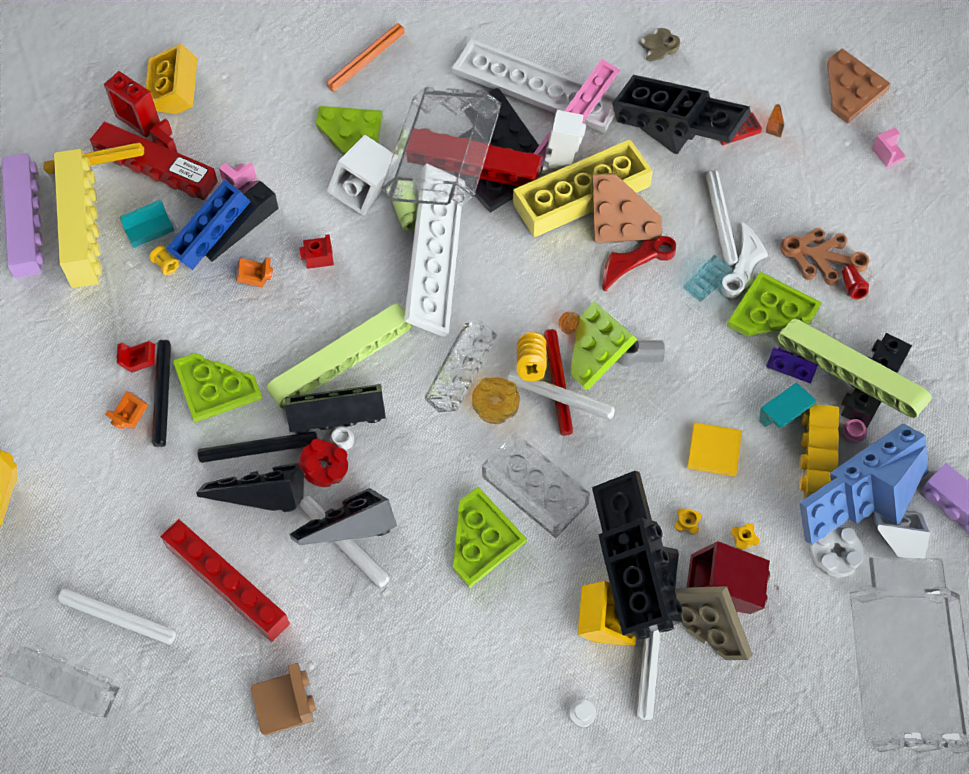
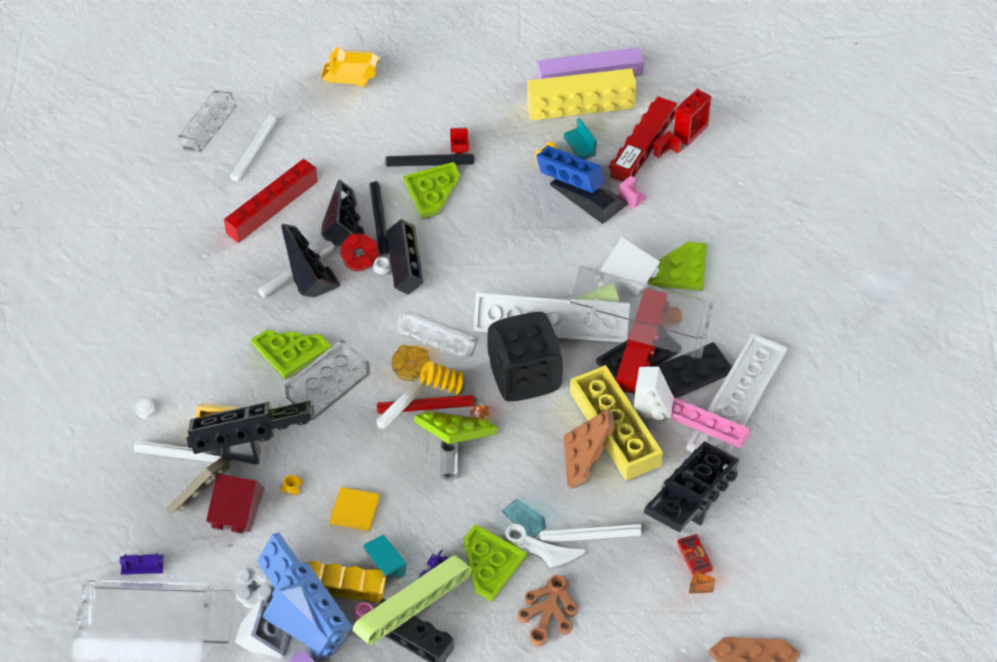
camera: 90 degrees right, 10 degrees down
(105, 156) = (640, 102): yellow axle -> none
(128, 411) = (411, 141): orange bracket -> none
(172, 79) = (725, 145): yellow slope -> none
(253, 272) = (534, 206): orange bracket -> none
(283, 701) = (178, 237): medium nougat bracket -> none
(317, 252) = (551, 242): red brick -> none
(339, 355) = (452, 258): yellowish green beam -> none
(365, 57) = (765, 275): orange axle -> none
(506, 264) = (524, 356): none -> black piece
(621, 263) = (544, 458): red piece -> none
(660, 44) = (796, 499): dark tan plate -> none
(745, 543) = (273, 527): yellow plate -> none
(823, 686) = (141, 564): none -> dark purple hinge
(855, 284) = (515, 629): red cone -> none

